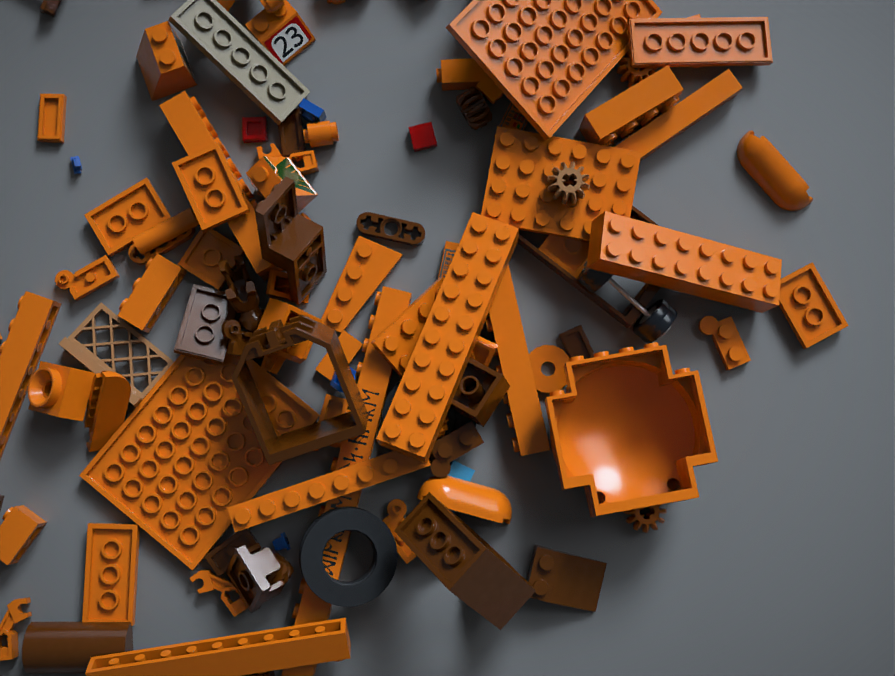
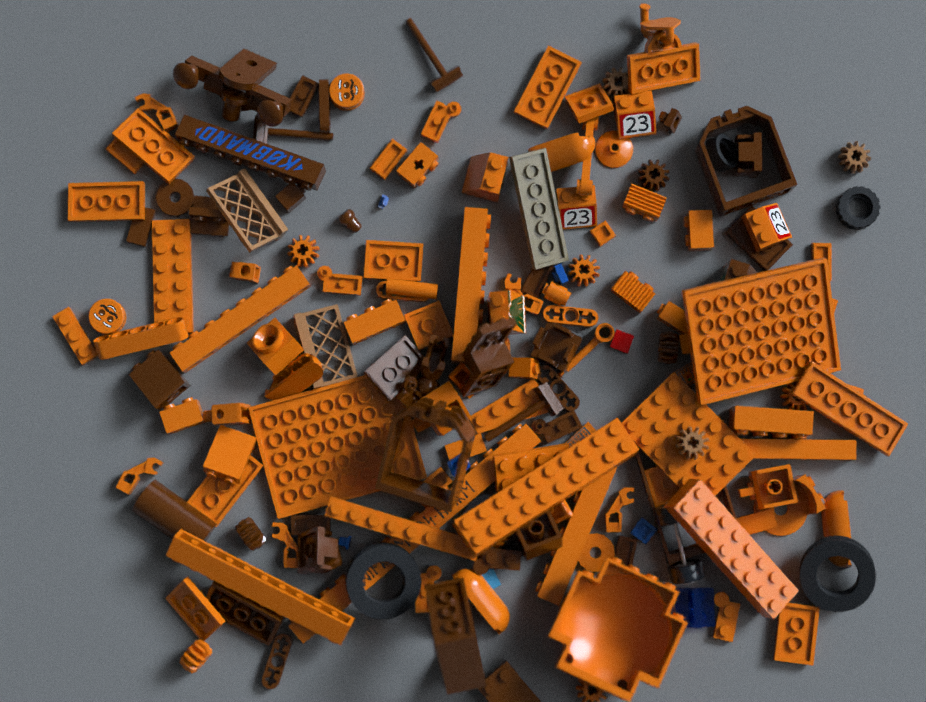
camera: 40 degrees right, 0 degrees up
(33, 268) = (298, 248): none -> orange gear
(53, 207) = (350, 221): none -> reddish brown piece
(62, 497) = (228, 414): none -> orange torso
(75, 41) = (438, 120): none -> orange hinge
(80, 91) = (408, 171): none -> orange brick
(91, 540) = (229, 455): none -> orange panel
(173, 607) = (250, 533): none -> reddish brown gear
(210, 187) = (461, 285): orange plate -> none
(254, 129) = (515, 259): red tile -> none
(326, 42) = (602, 233): none -> orange tile
(333, 149) = (576, 310): none -> orange beam
(338, 97) = (584, 264): none -> orange gear
(341, 231) = (524, 368): none -> orange brick
(358, 186) = (555, 346): none -> reddish brown panel
(388, 247) = (547, 400): none -> reddish brown piece
(393, 163) = (590, 346): none -> orange piece
(398, 77) = (633, 291): none -> orange brick
(419, 267) = (558, 427): none -> reddish brown hinge
(536, 297) = (620, 501): none -> orange piece
(581, 311) = (643, 531): none -> blue plate
(671, 187) = (759, 489): none -> orange hinge
(691, 217) = (758, 521): none -> orange tile
(691, 349) = (696, 606): none -> clear blue bracket
(713, 166) = (808, 503): none -> orange piece
(837, 230) = (841, 600): none -> black tyre

